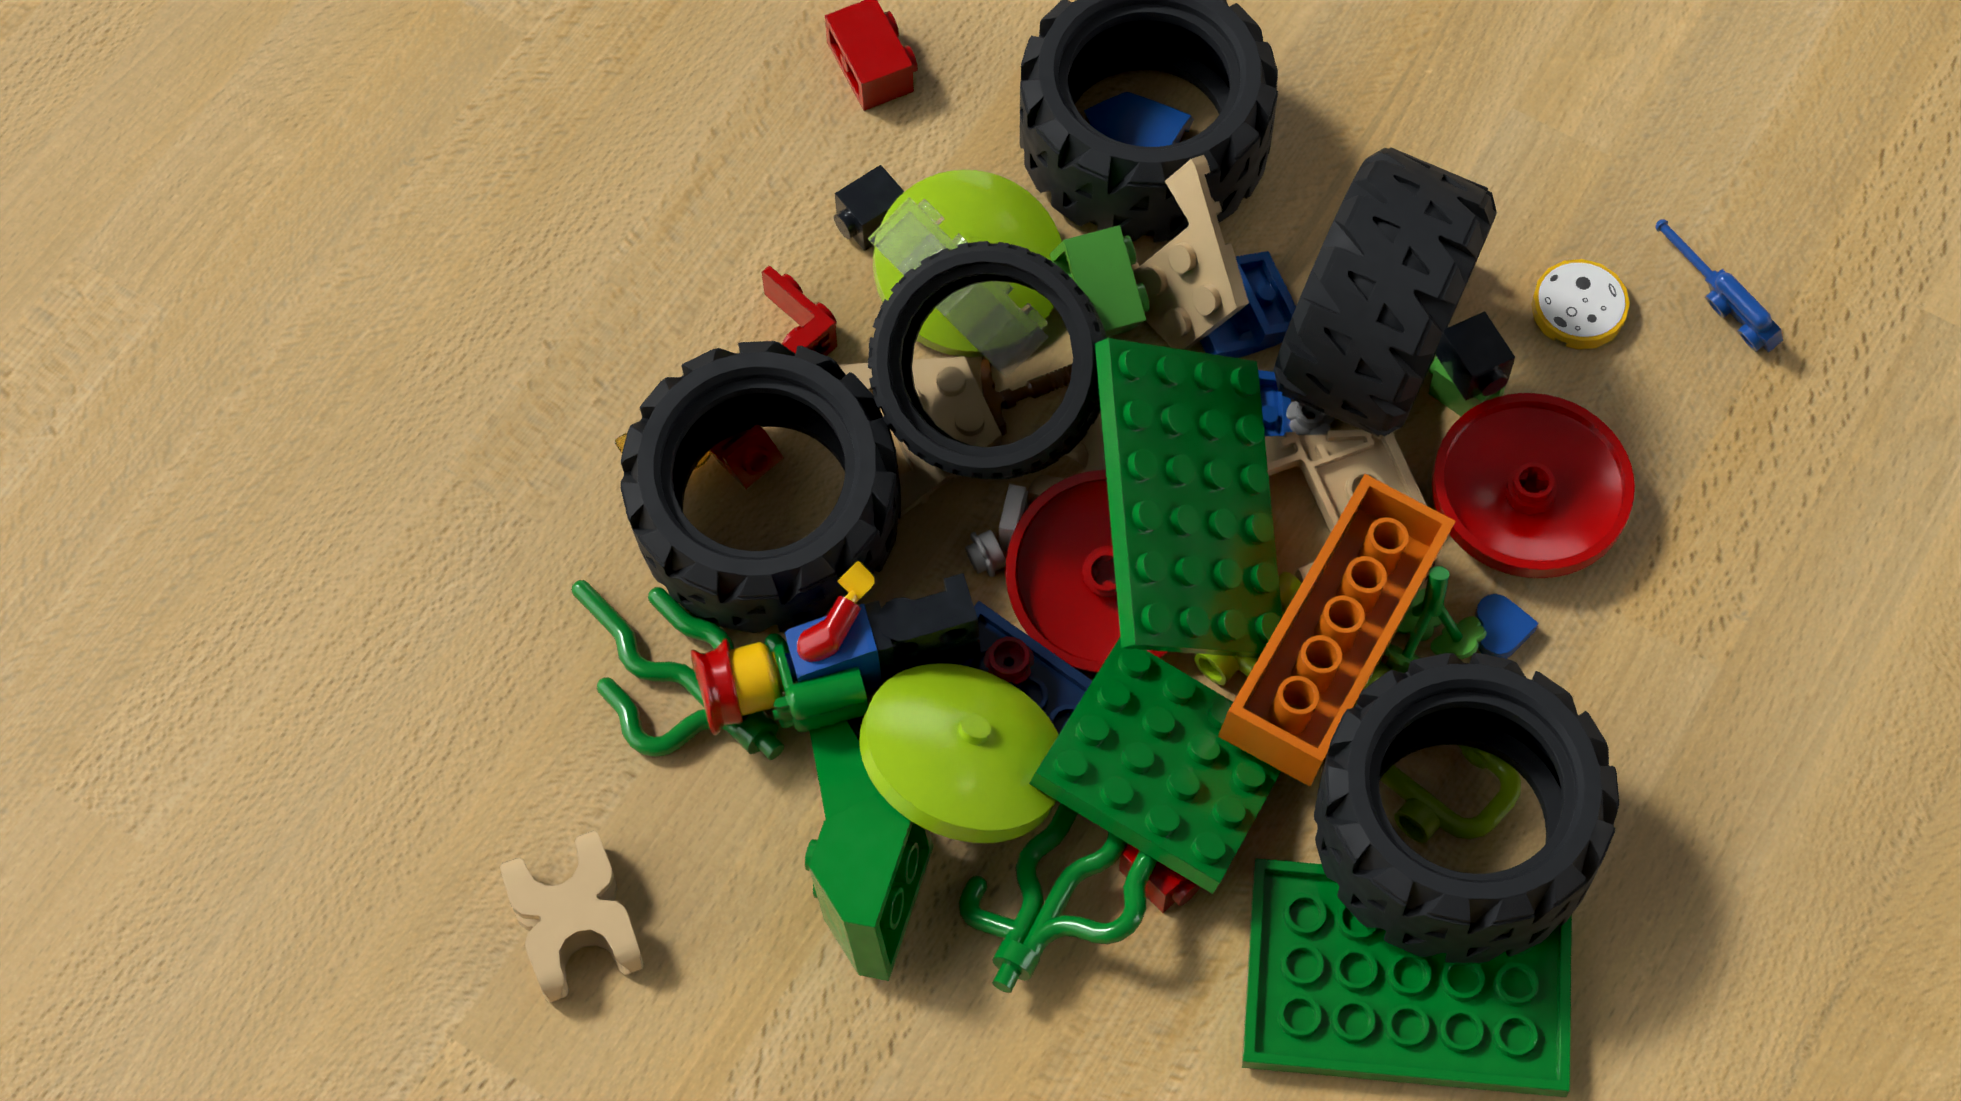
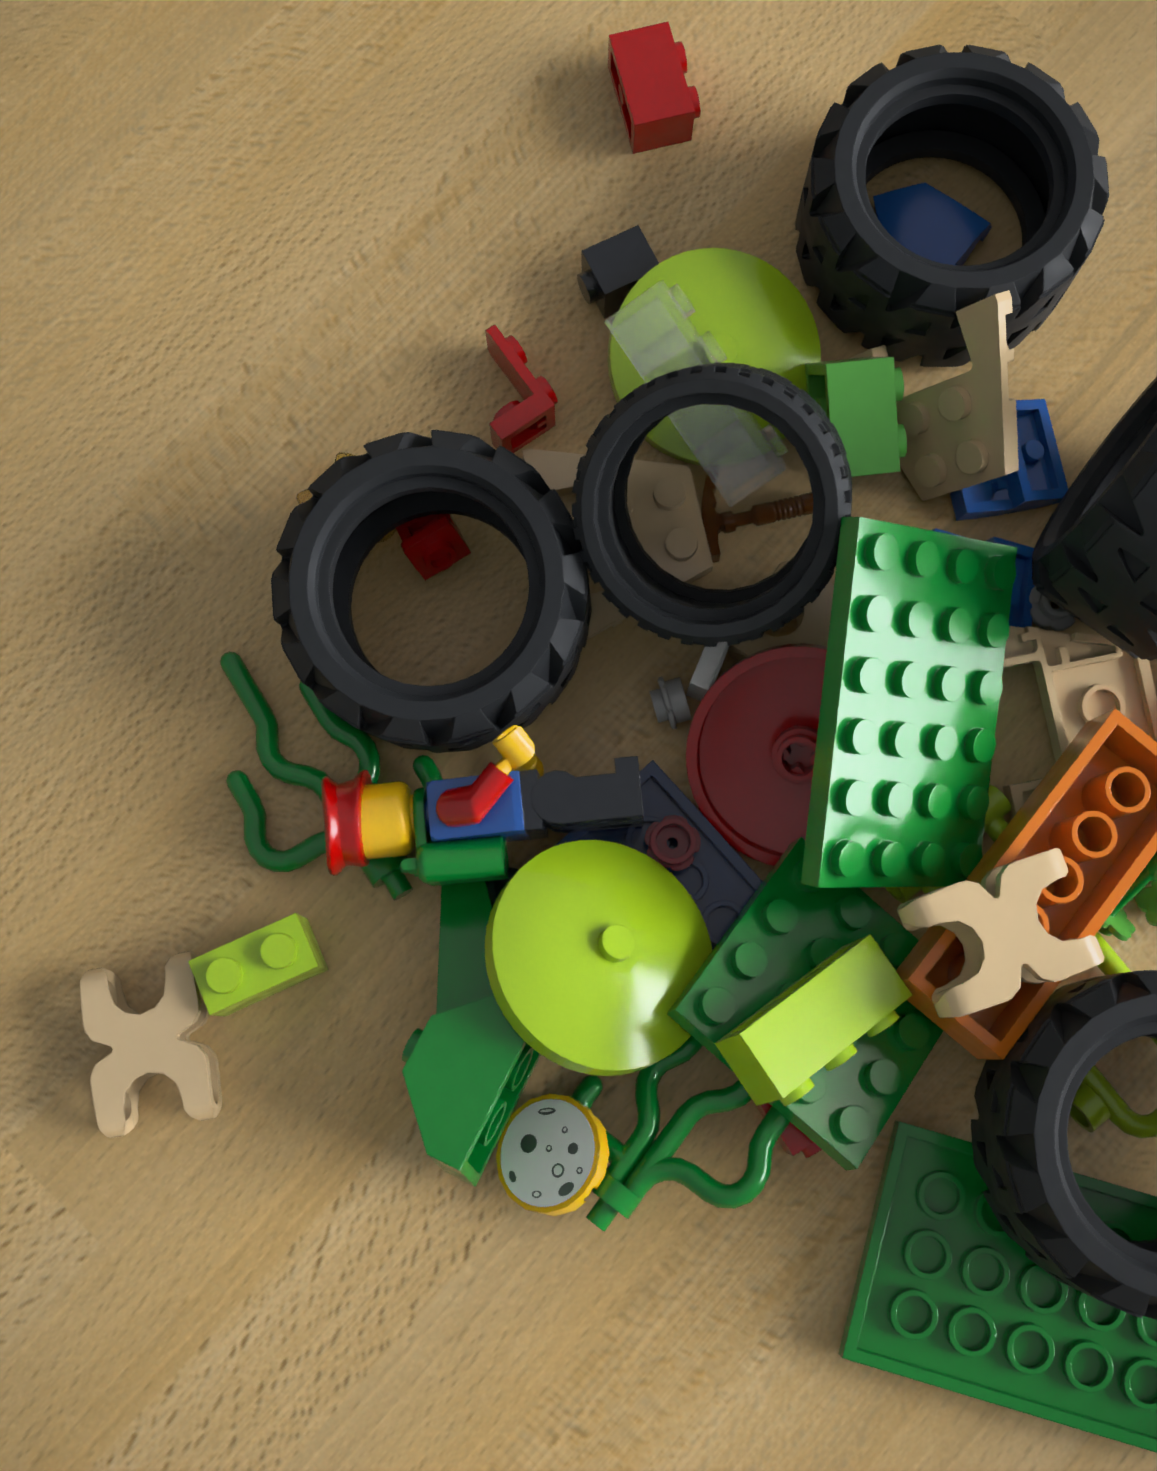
camera: 10 degrees right, 15 degrees up
(658, 830) = (258, 965): none -> lime brick
(952, 939) = (552, 1154): none -> white tile
(1156, 760) = (815, 1023): none -> lime brick
(1296, 655) = (1000, 934): none -> tan piece

